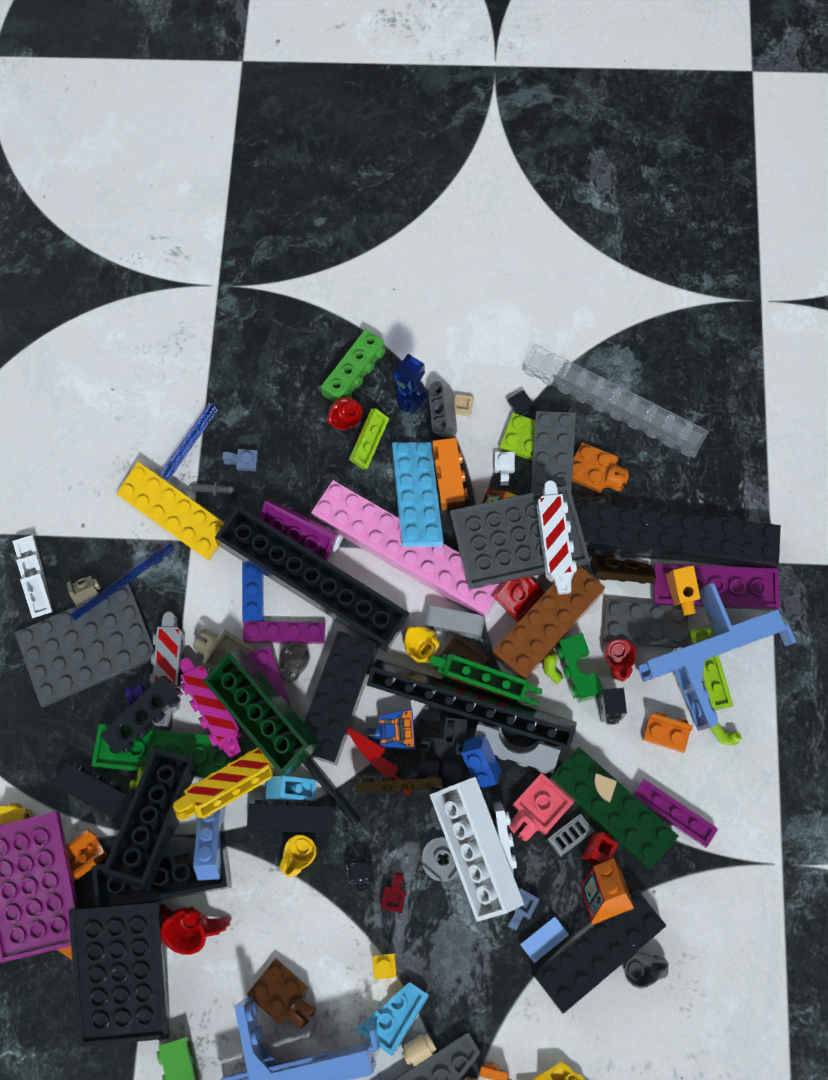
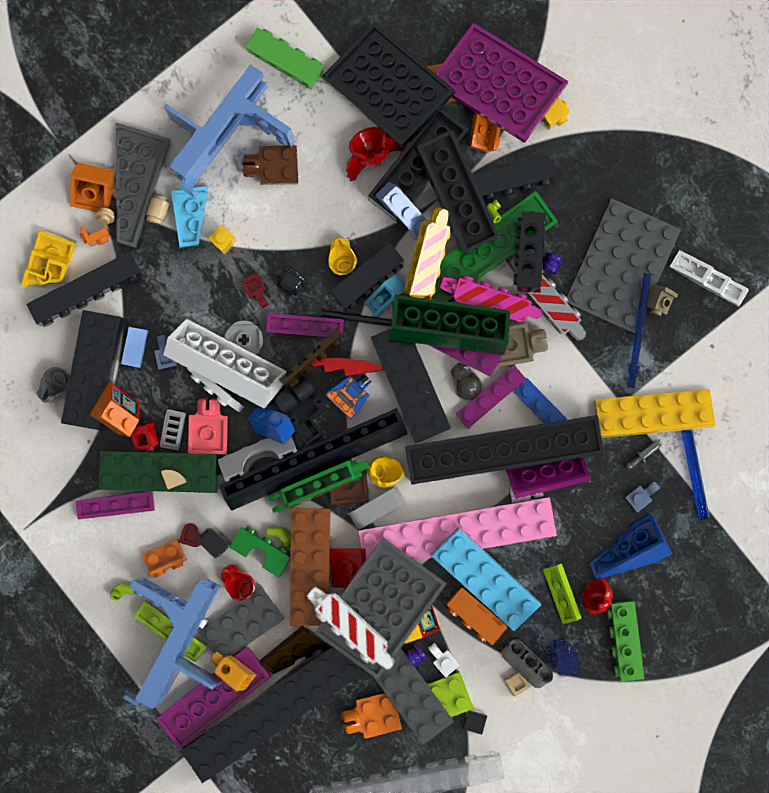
camera: 140 degrees right, 15 degrees up
(283, 425) = (635, 549): none -> blue wedge
(381, 825) = (302, 325): none -> magenta plate
(522, 486) = (415, 654): none -> dark purple wheel
(546, 1034) = (84, 289): none -> black brick
(629, 732) = (190, 535): none -> dark red tile

